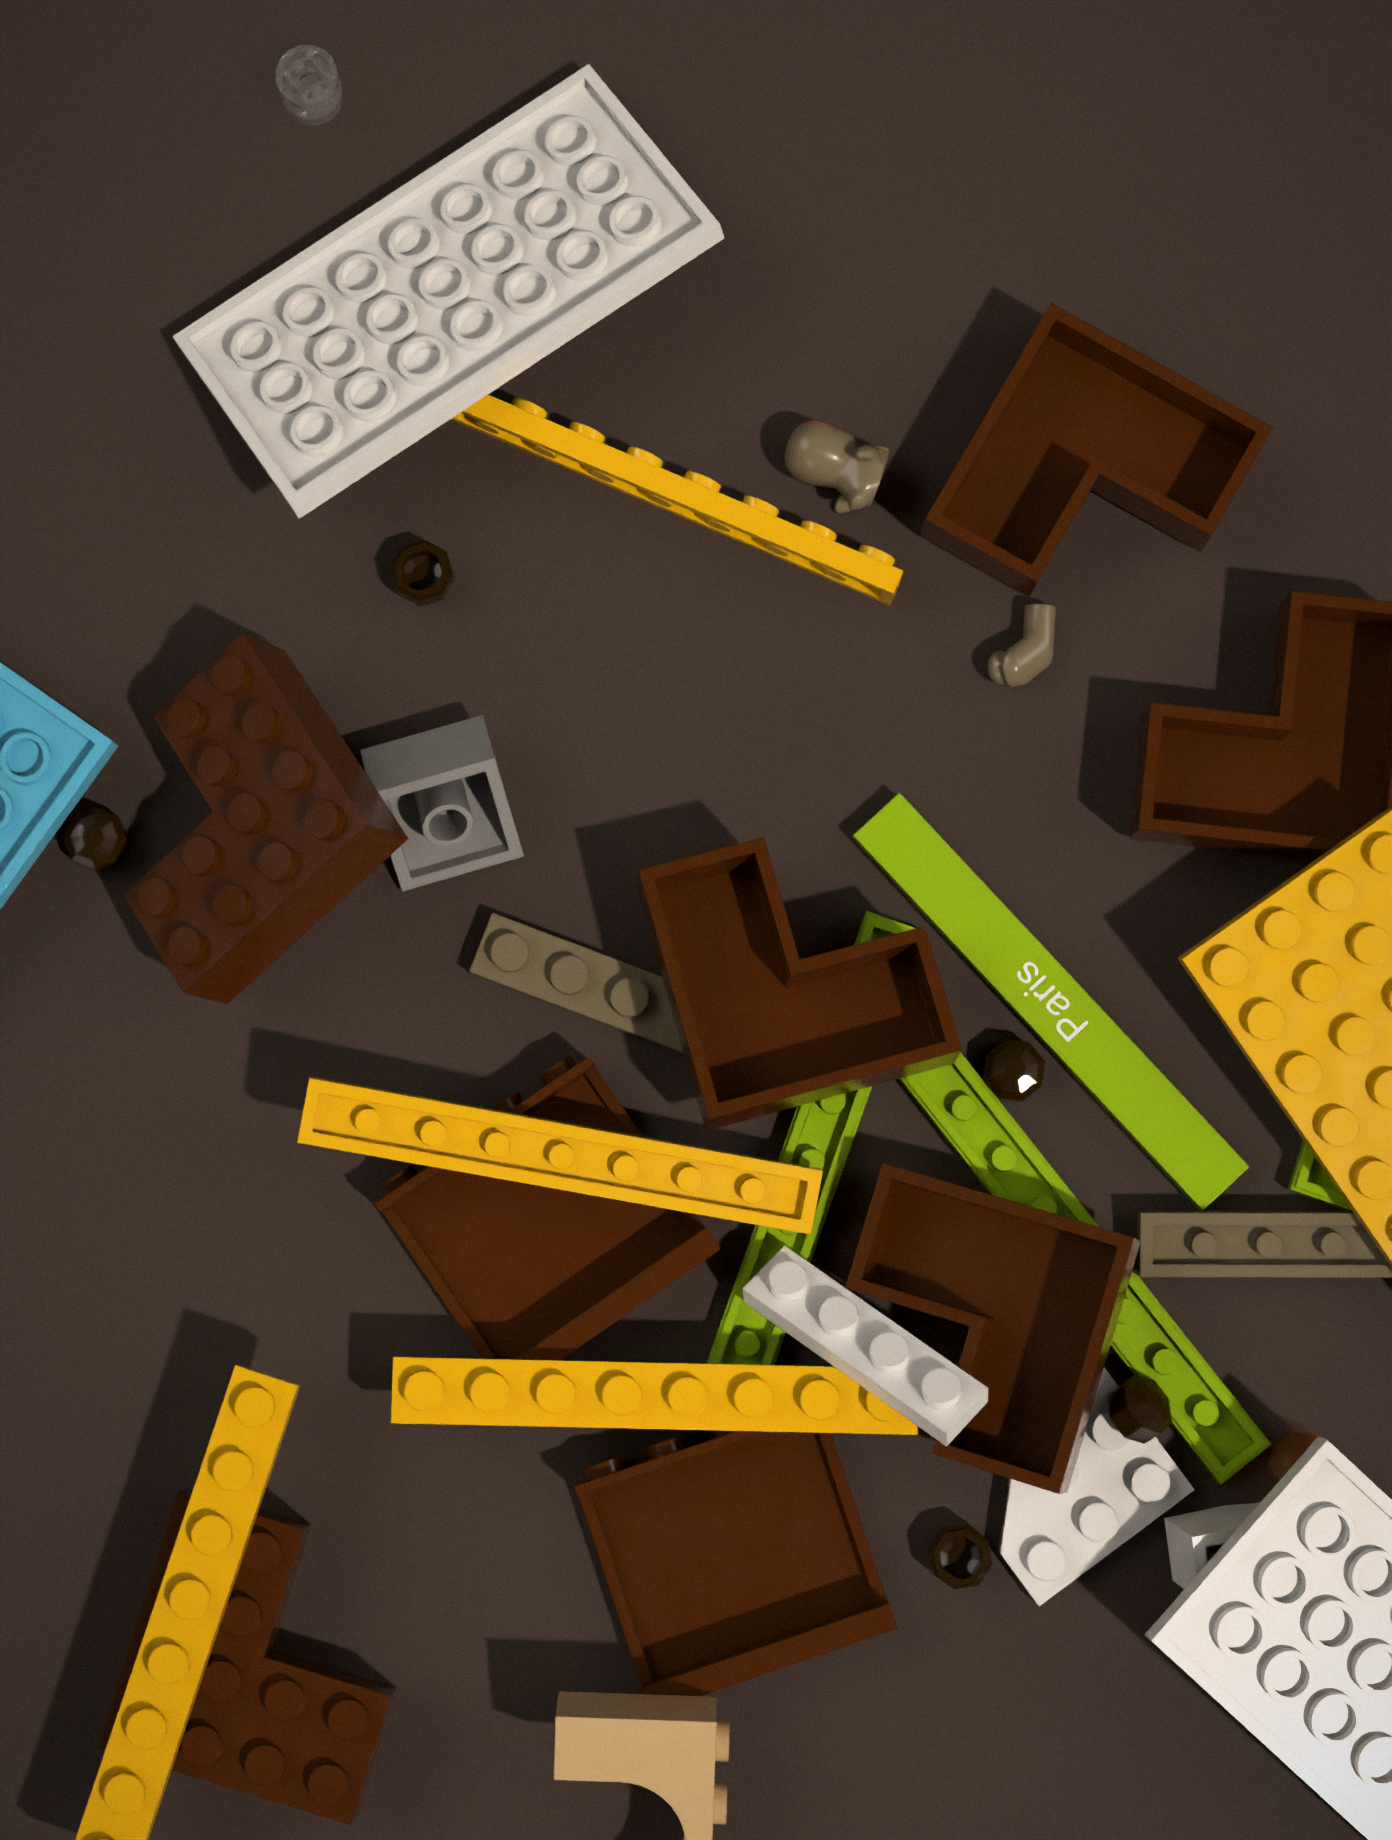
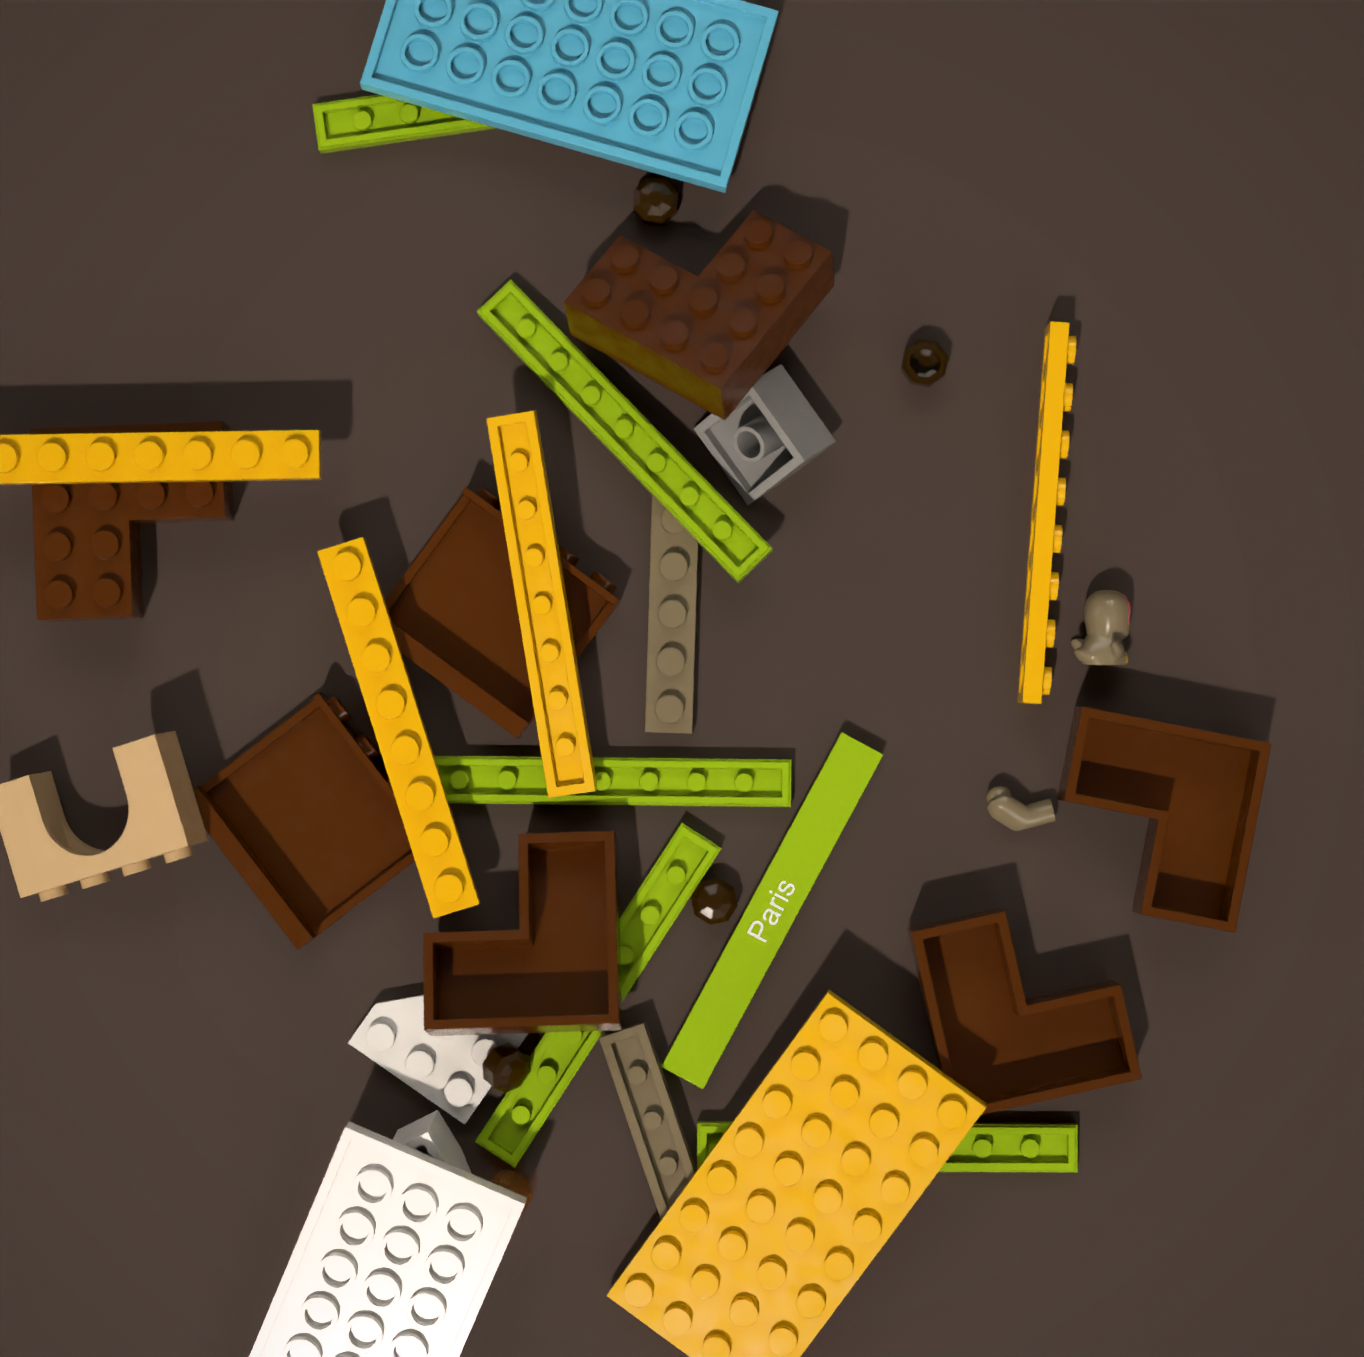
camera: 75 degrees right, 5 degrees up
(311, 98) = (1242, 161): clear wheel -> none
(374, 978) = (624, 431): none -> lime tile
(447, 289) = (1133, 309): white plate -> none
(778, 1027) = (684, 713): reddish brown piece -> none
(866, 1345) = (482, 861): white plate -> none
(960, 1556) = (363, 976): dark brown tile -> none

